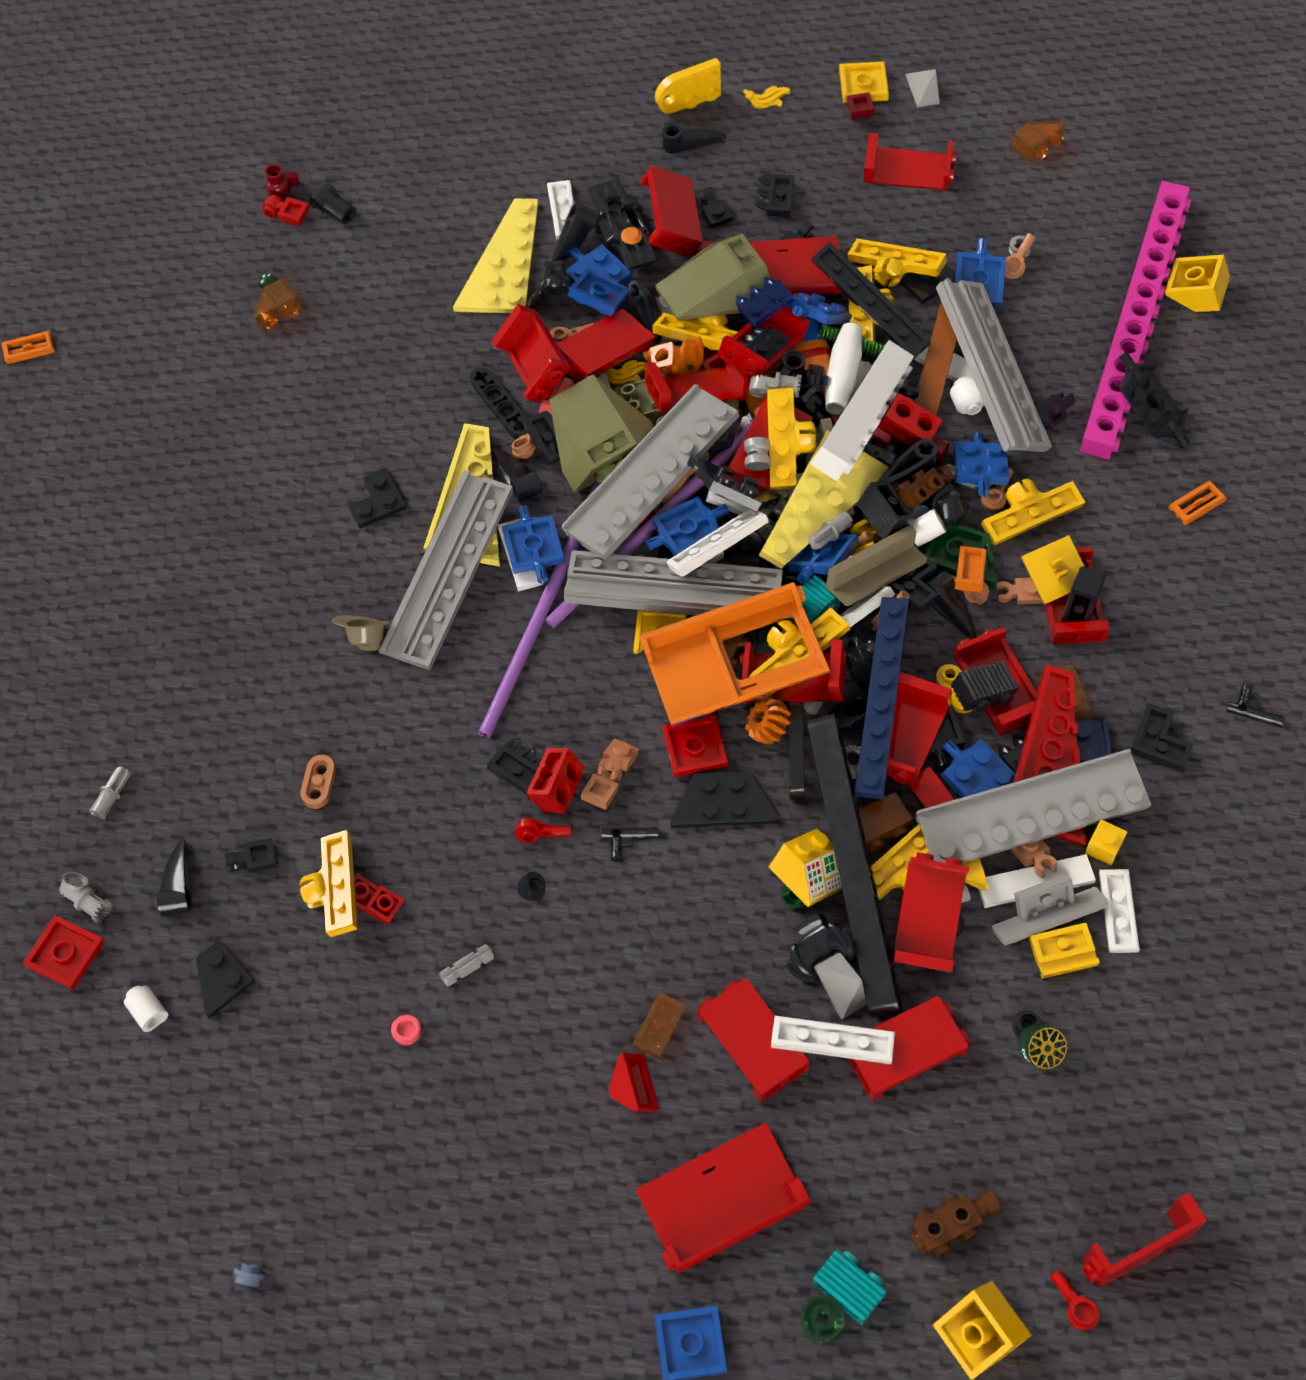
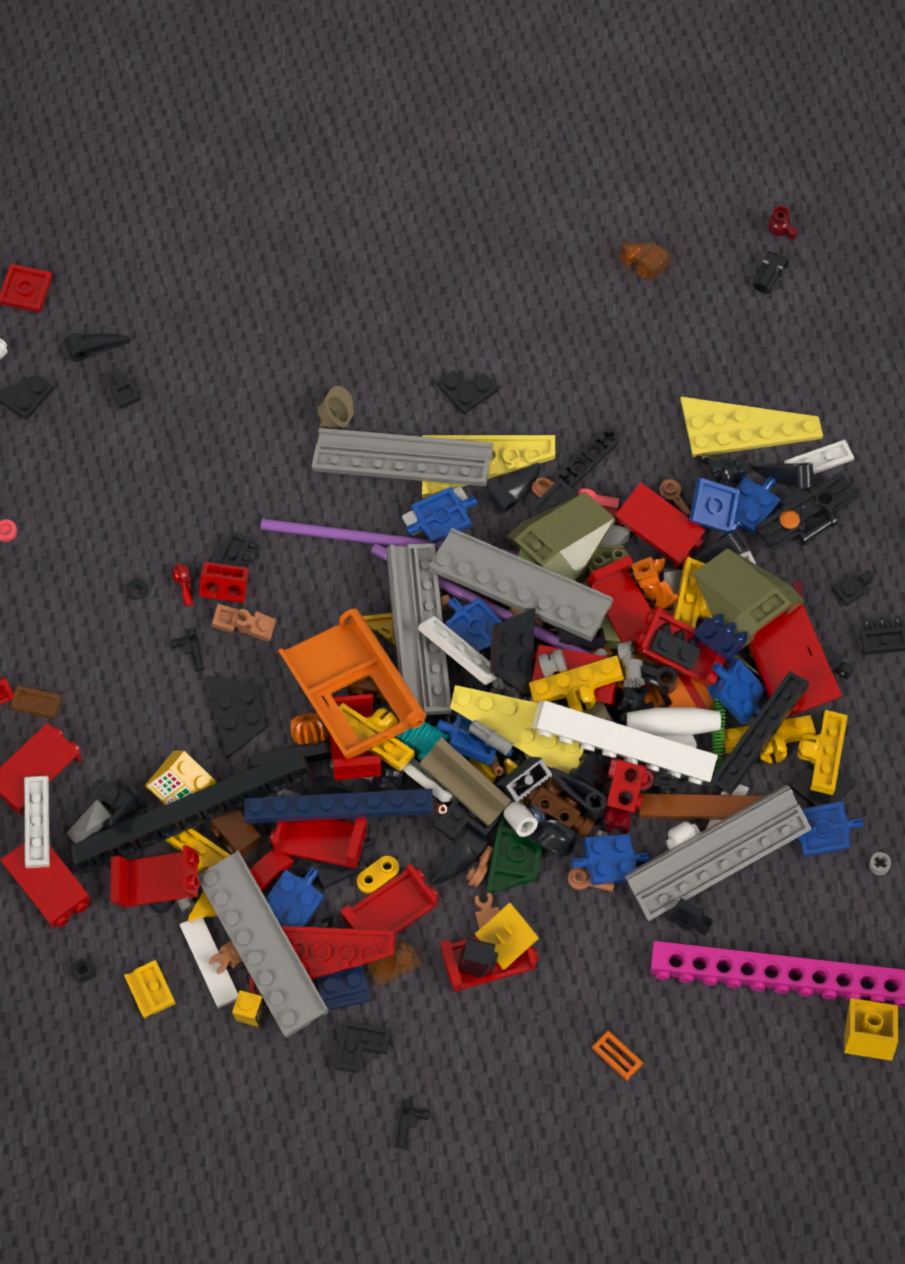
camera: 75 degrees right, 5 degrees up
(28, 350) = (566, 103): orange tile -> none
(84, 896) = (70, 287): light grey connector -> none
(110, 793) = (159, 277): light grey axle -> none
(266, 280) = (669, 245): dark green plate -> none
(291, 211) = (754, 238): red plate -> none
(317, 782) = (195, 414): nougat plate -> none
(334, 885) = (107, 448): yellow plate -> none
(376, 900) = (105, 480): red slope -> none
(466, 965) = (63, 558): light grey axle -> none
(532, 352) = (656, 455): red panel -> none
(627, 373) = (643, 551): yellow piece -> none
(673, 211) = (830, 547): red panel -> none
(695, 746) = (276, 682): red plate -> none
(815, 376) = (659, 699): black plate -> none
(971, 569) = (490, 864): orange tile -> none
(985, 686) = (374, 891): black brick -> none
(1015, 263) = (853, 860): nougat plate -> none
(1031, 509) = (573, 910): yellow plate -> none
(1041, 1045) = (55, 977): clear green wheel -> none
(1047, 907) = (183, 972): light grey bracket -> none
(1120, 913) = (195, 1029): white tile -> none
(1141, 385) = (707, 1016): black plate -> none

